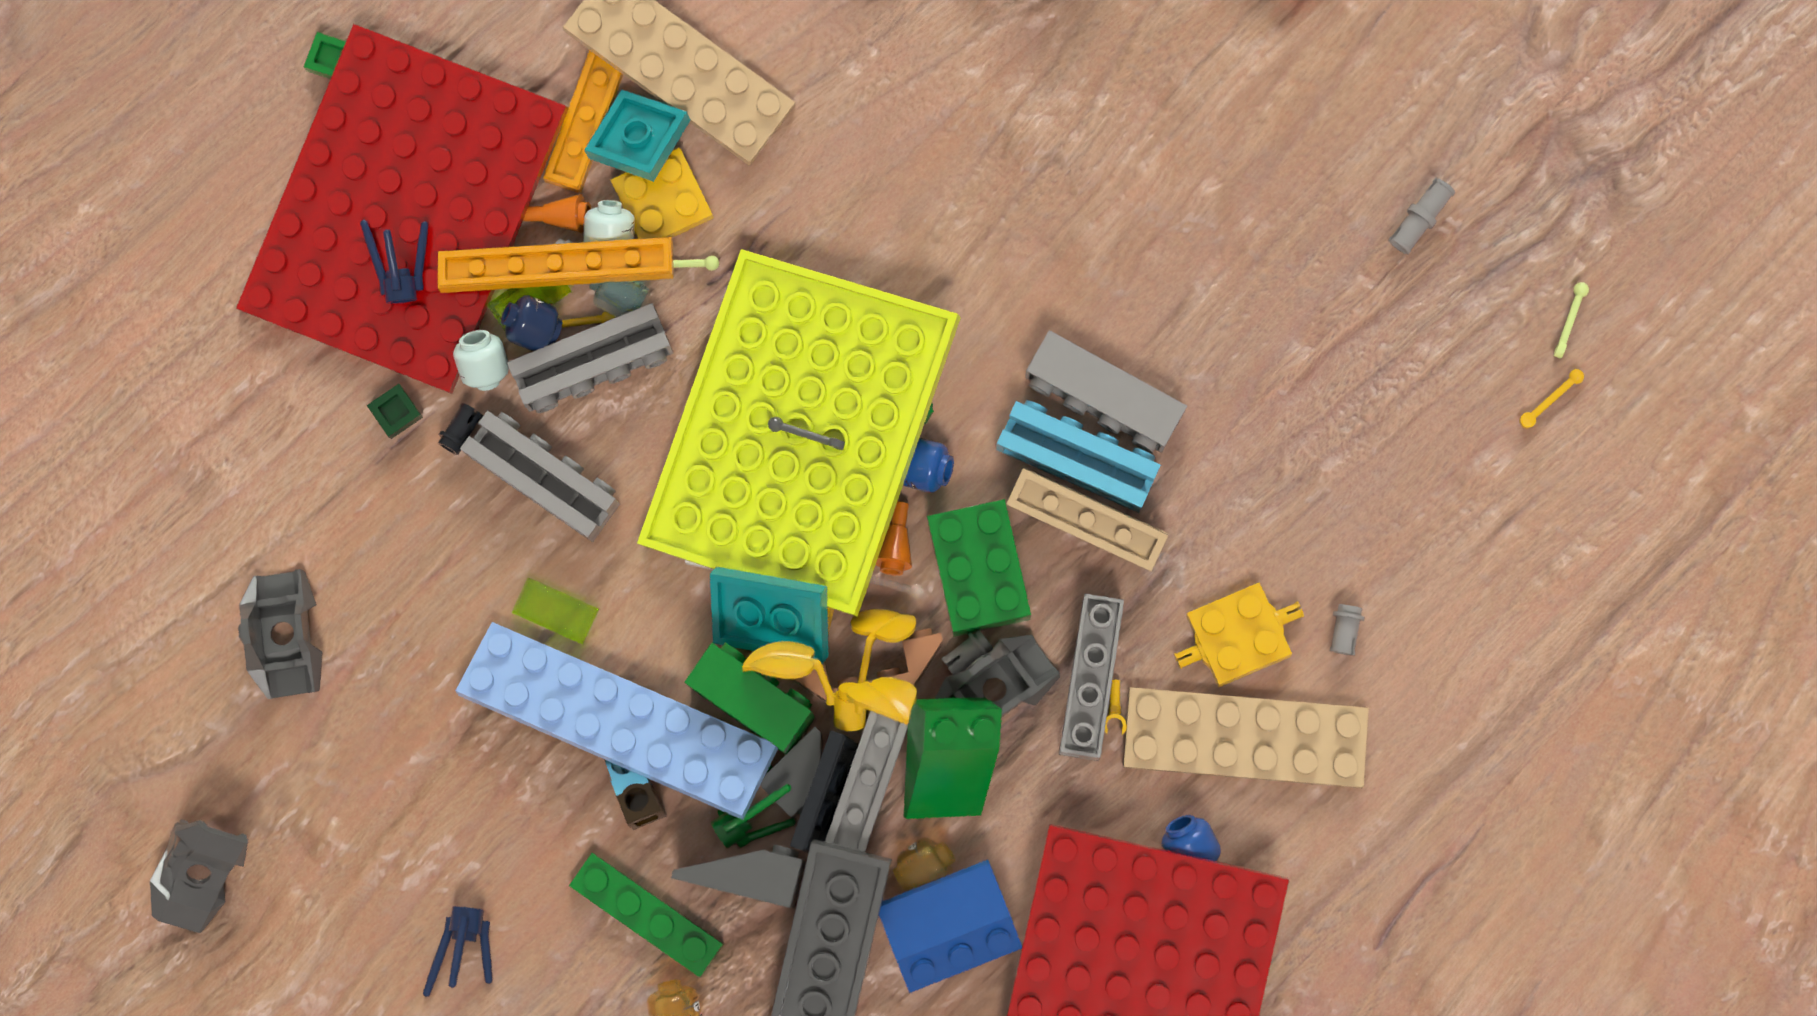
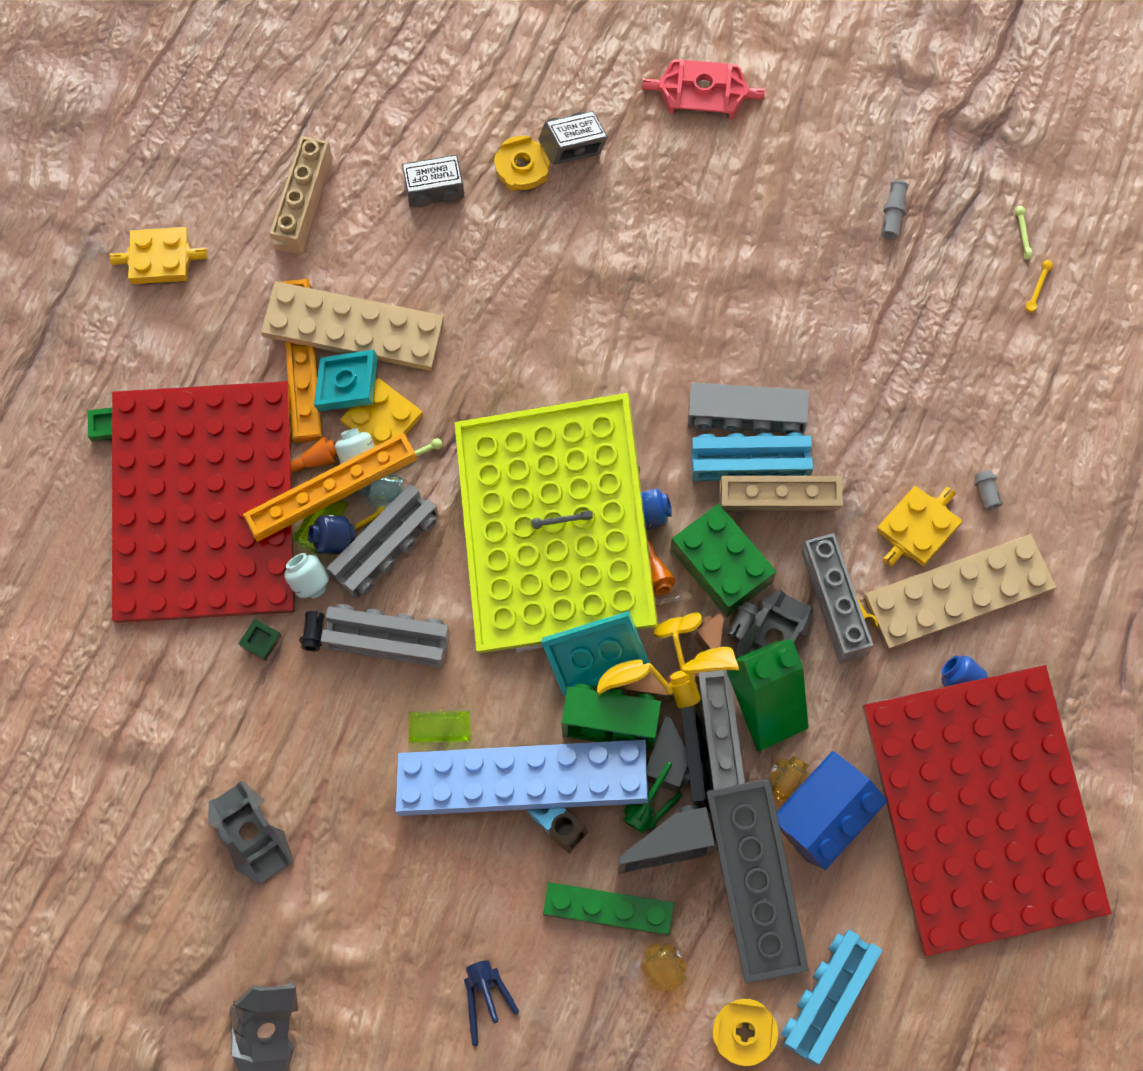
camera: 30 degrees left, 10 degrees down
(397, 283) = (225, 548): dark blue plant -> none

